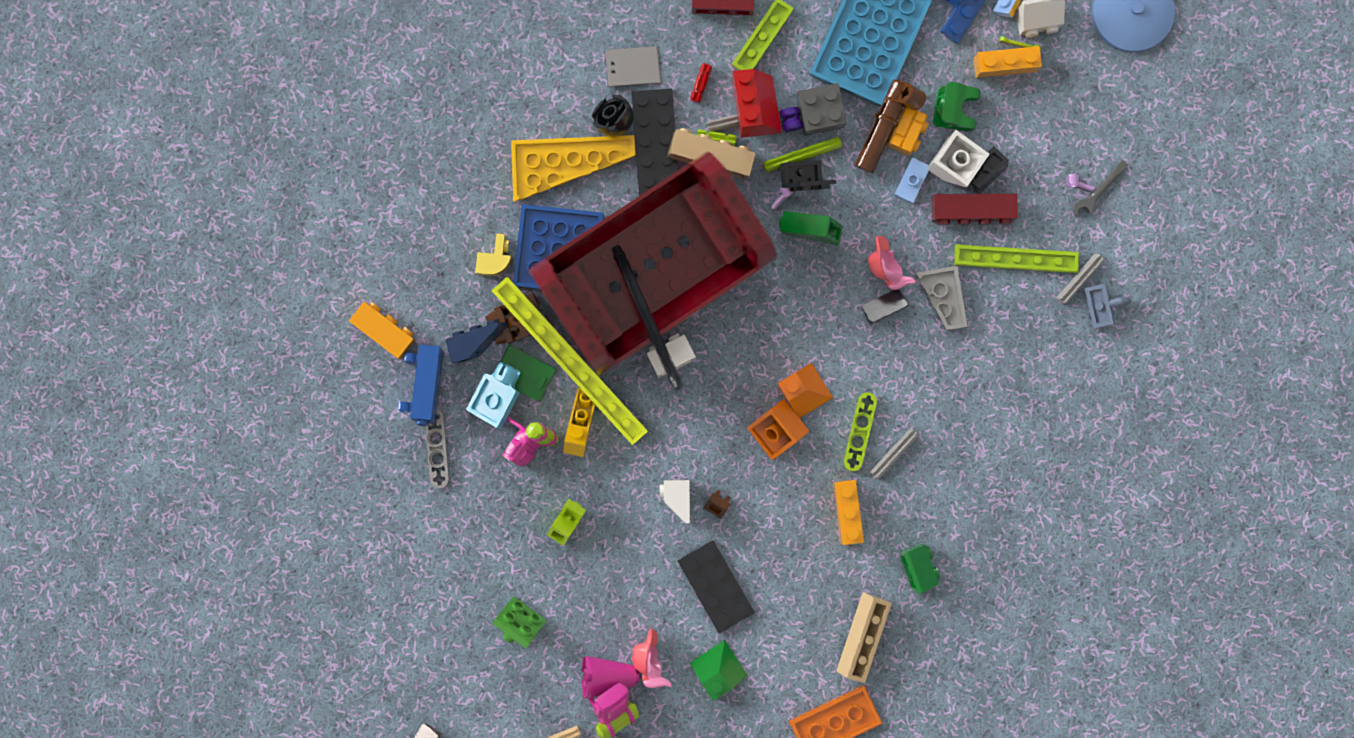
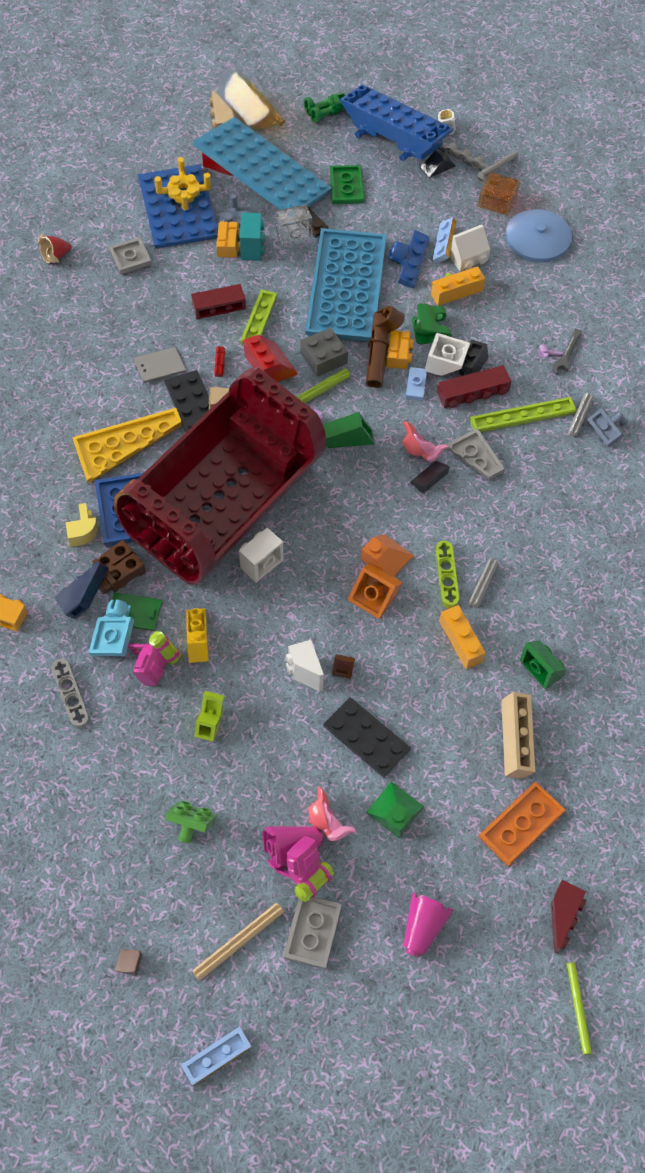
camera: 20 degrees left, 25 degrees down
(426, 384) = (46, 640): blue brick -> none
(569, 360) = (173, 582): neon yellow plate -> none
(613, 116) = (156, 397): black cylinder -> none
(652, 329) = (231, 518): black piece -> none
(791, 119) = (301, 364): dark purple wheel -> none
(803, 176) = (328, 398): black bracket -> none

